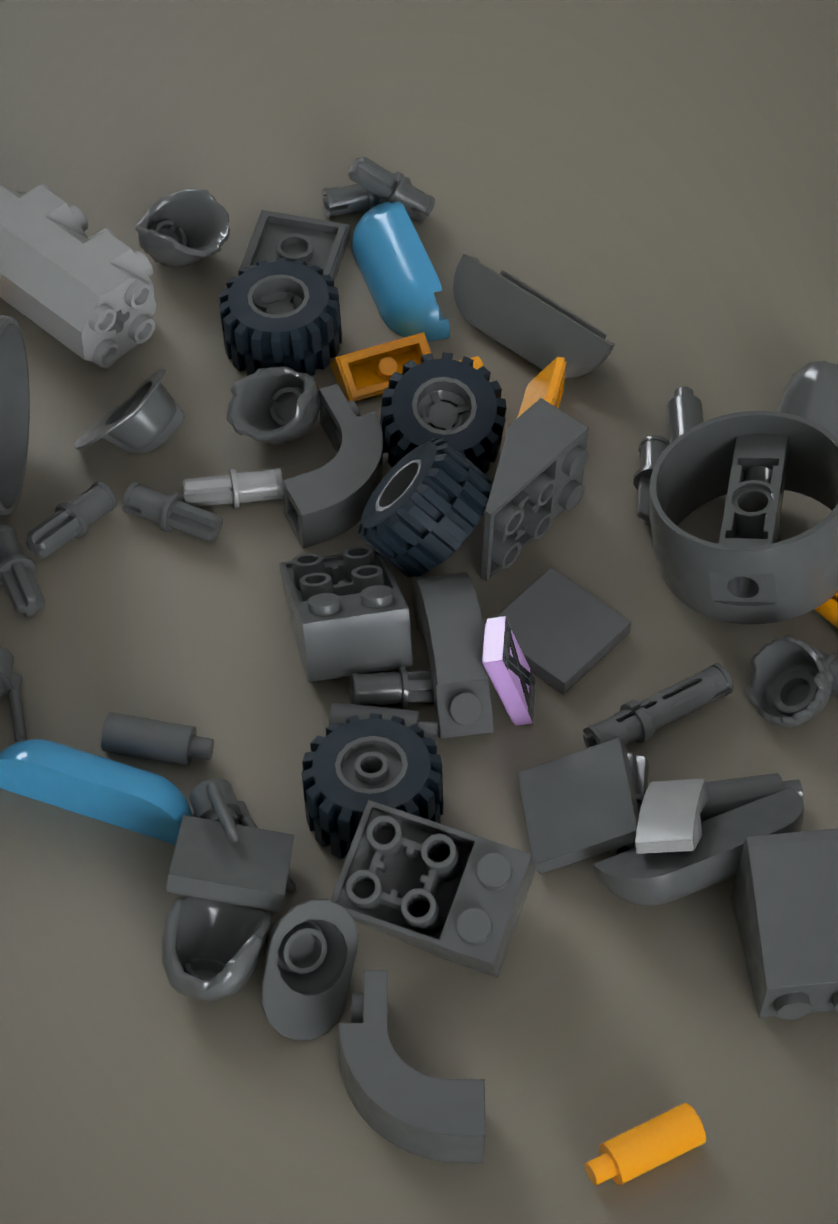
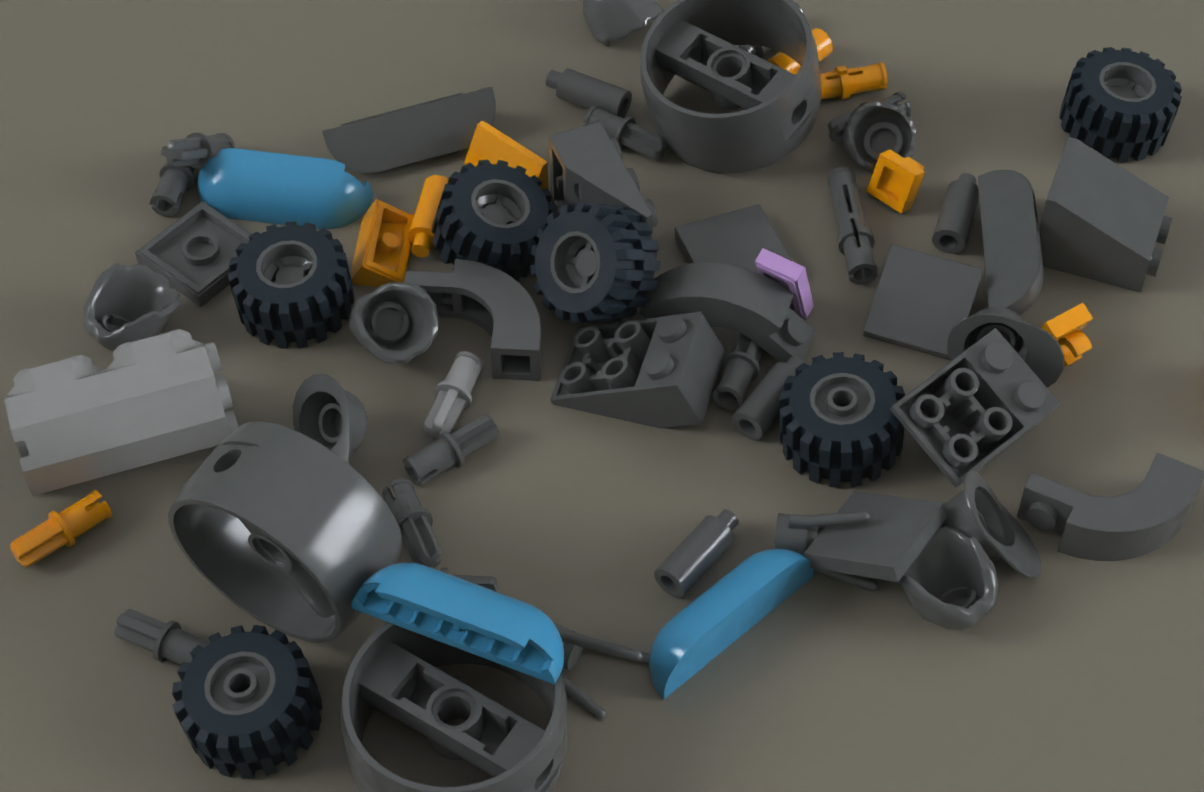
camera: 60 degrees left, 0 degrees up
(563, 894) = (1031, 343): none -> dark grey piece
(623, 949) = (1067, 332): none -> light orange tile
(671, 816) = (982, 243): light grey slope -> none
(748, 726) = (896, 180): none -> light orange tile

